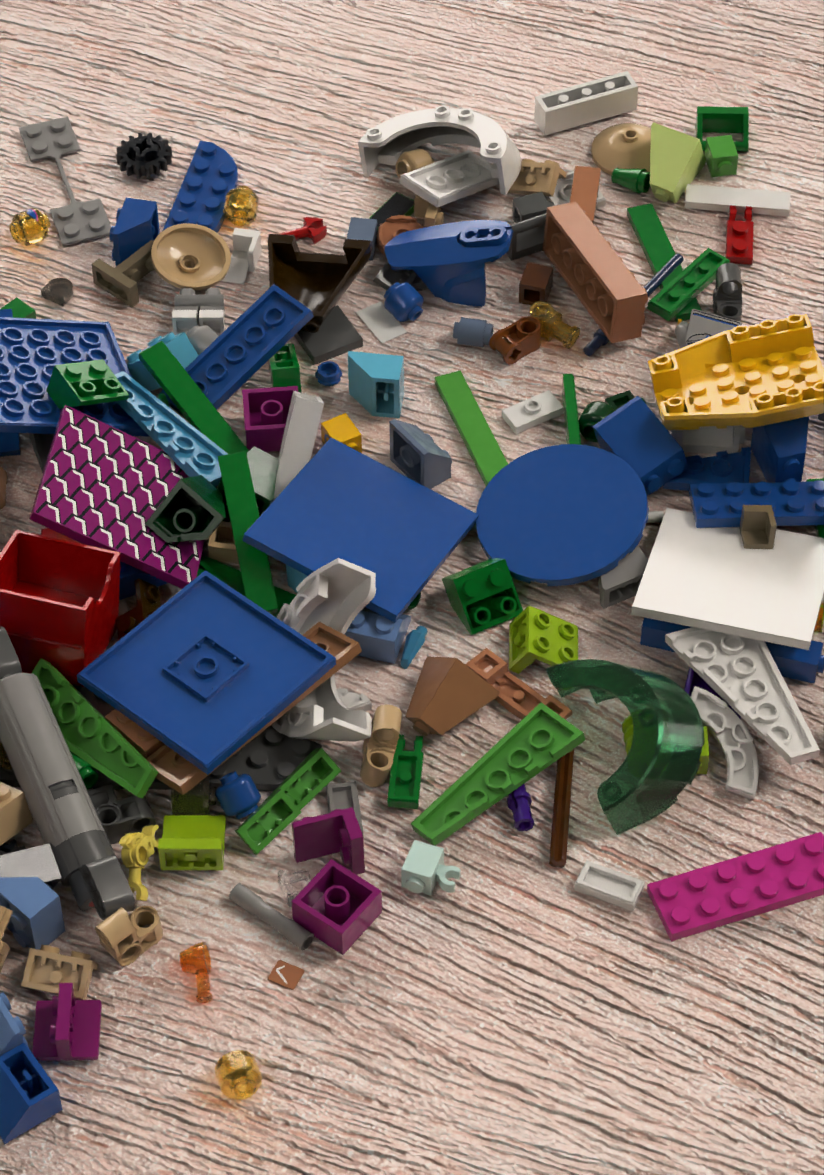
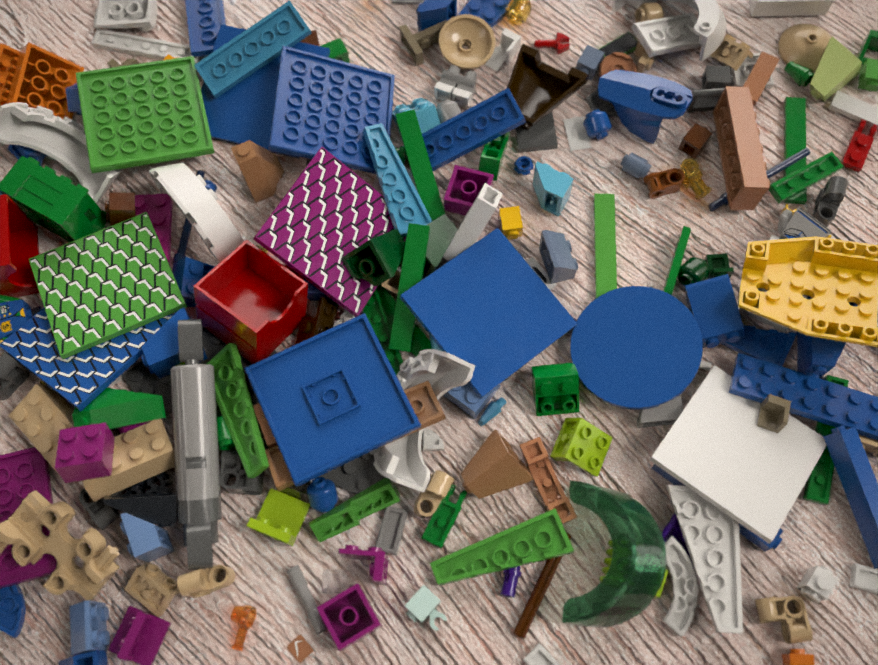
camera: 25 degrees right, 20 degrees up
(58, 291) = (374, 38): clear smoke tile -> none
(84, 384) = (346, 131): green slope -> none
(135, 855) = (234, 518): light yellow piece -> none
(532, 412) = (651, 245): white plate -> none

